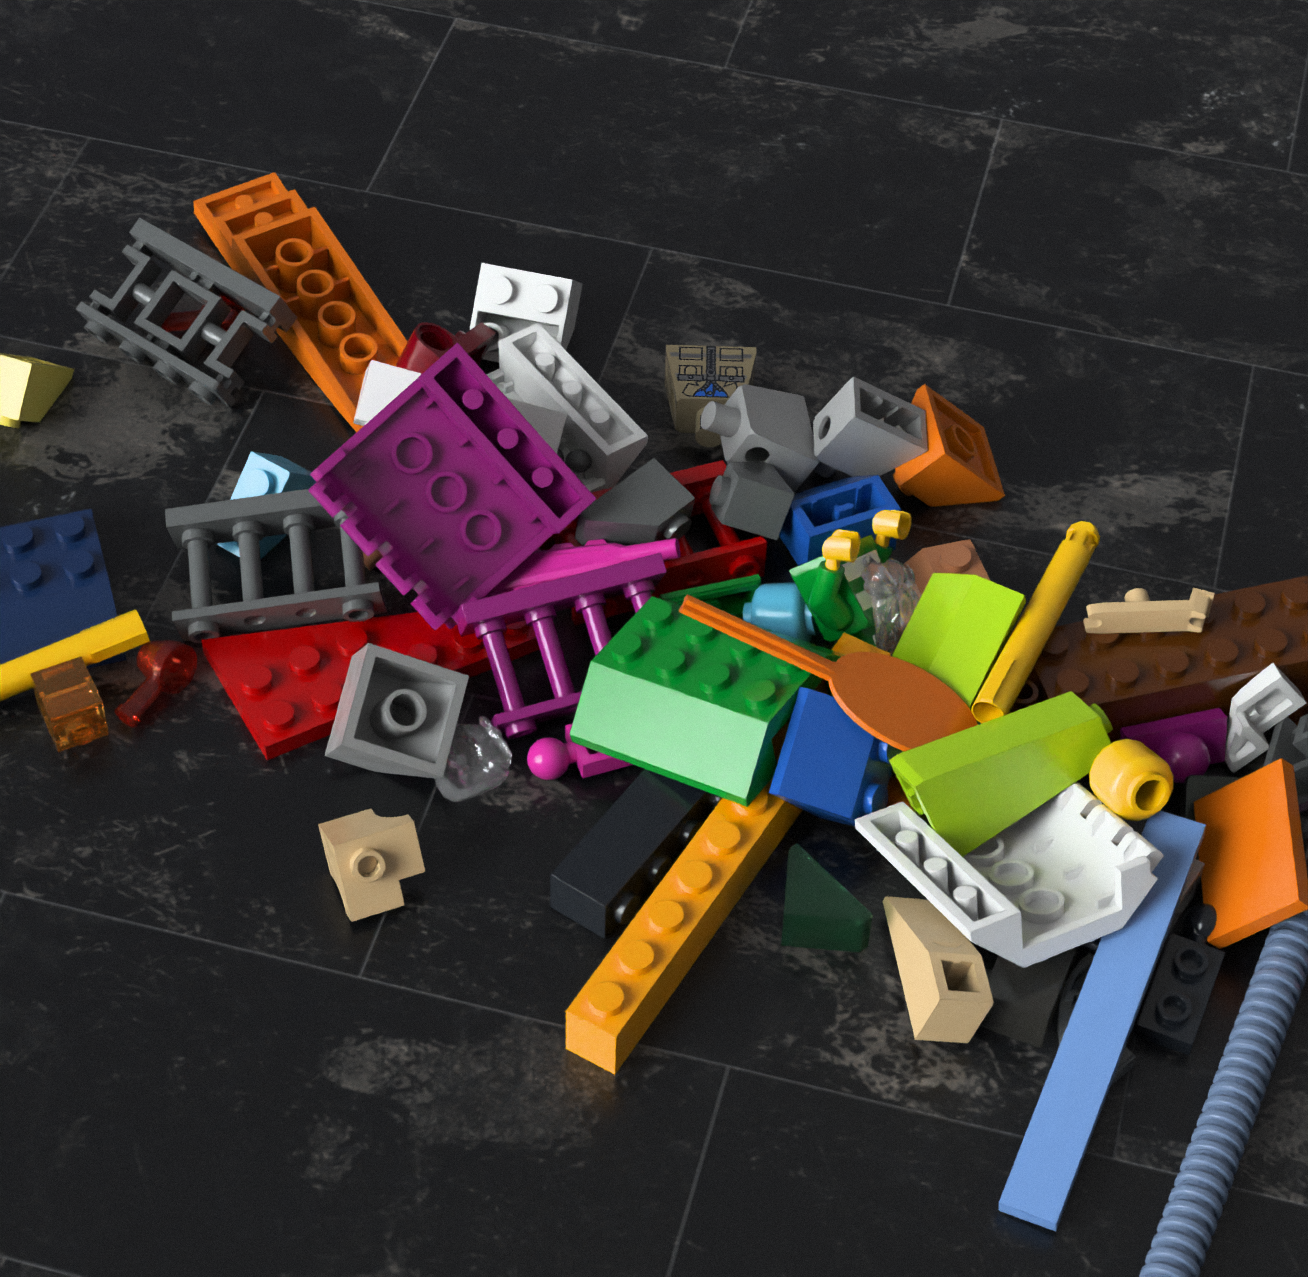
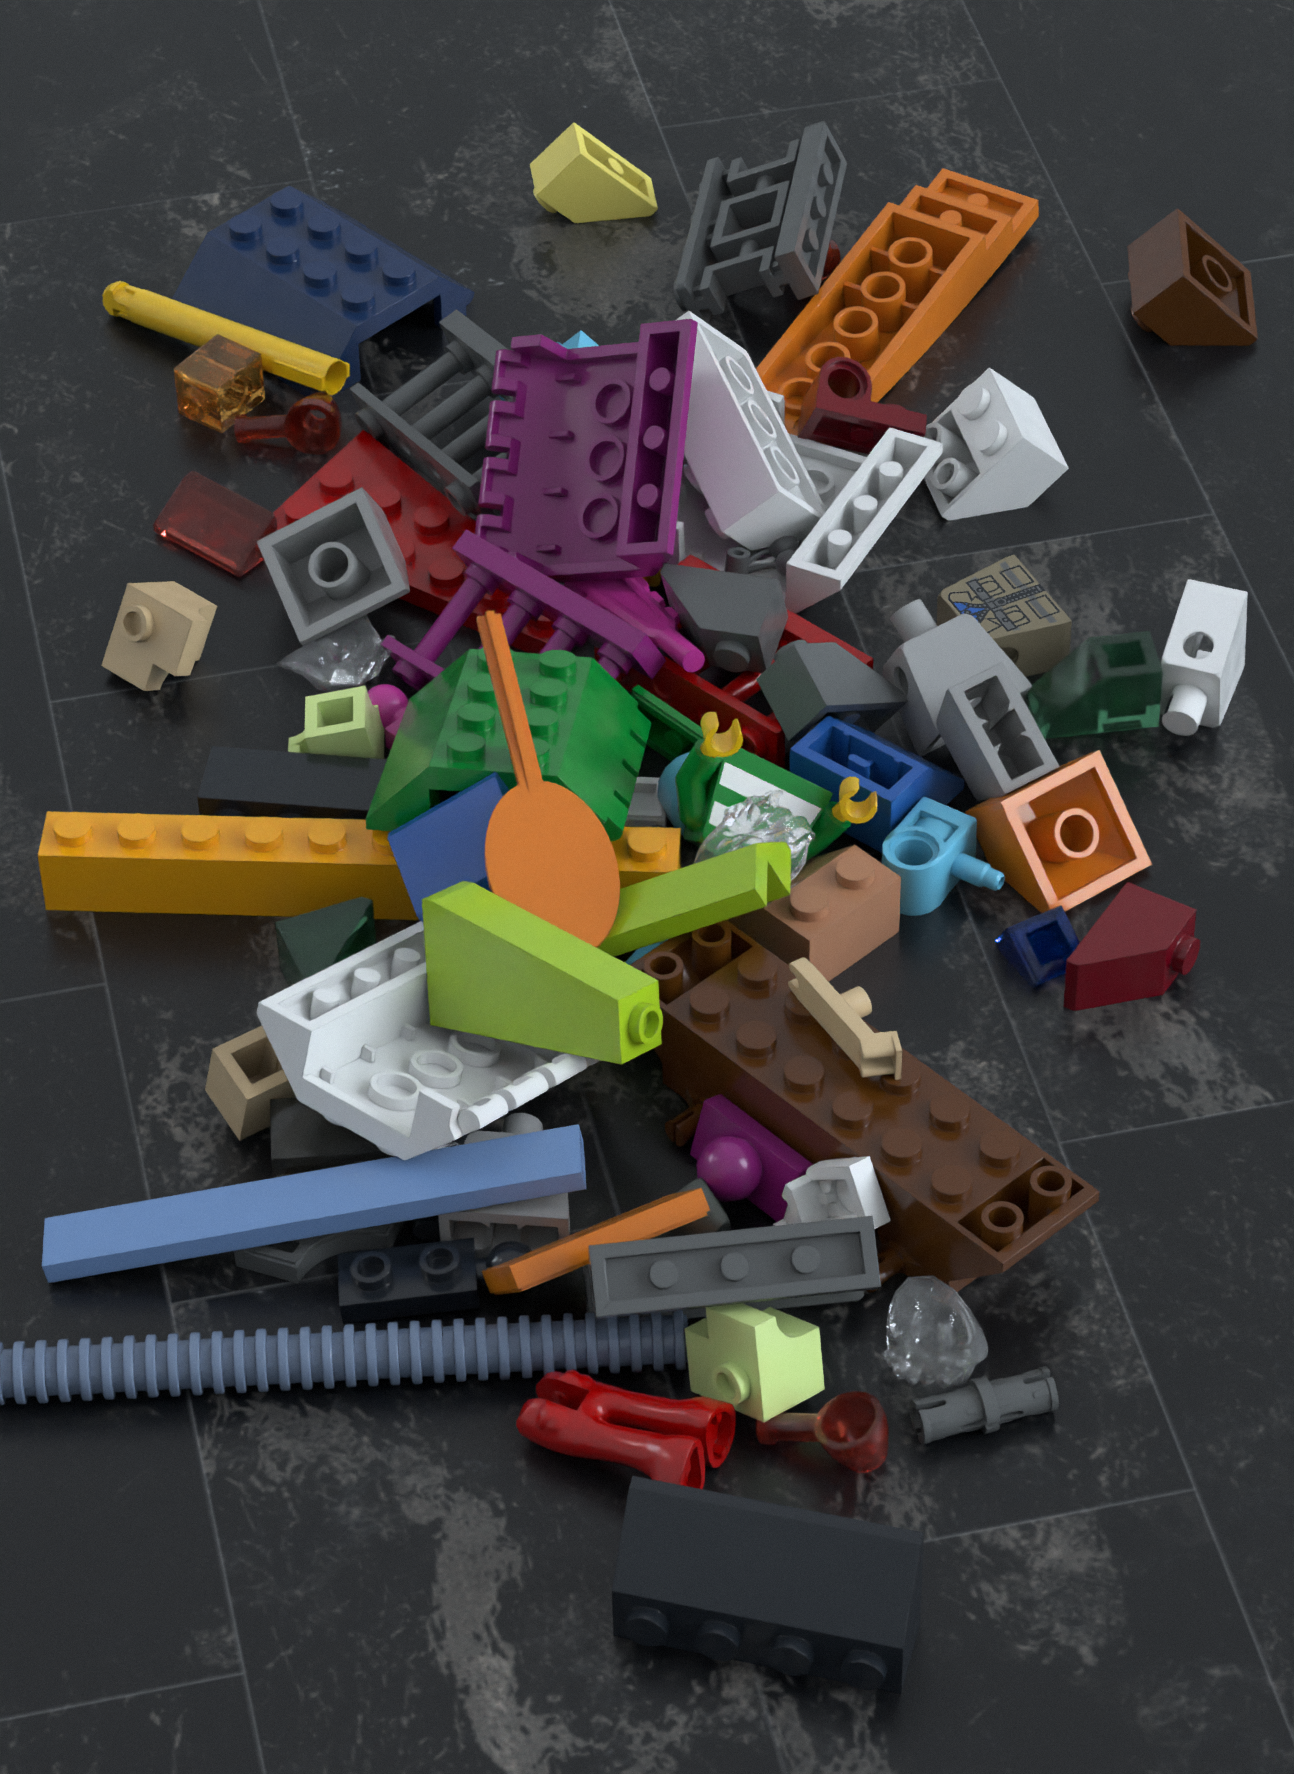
camera: 65 degrees right, 5 degrees down
(240, 777) = (215, 523): none -> clear red slope
(428, 148) = (1190, 287): none -> reddish brown slope
(575, 795) = (341, 725): none -> yellowish green brick
(823, 360) = (1100, 688): none -> clear green slope
(834, 306) = (1200, 682): none -> white torso
(932, 519) = (932, 854): none -> medium azure piece
(1031, 513) = (1039, 946): none -> clear blue slope
(1036, 623) = (649, 933): yellow piece -> none
(1073, 465) = (1131, 950): none -> dark red slope
(1131, 779) = (581, 1078): yellow head -> none

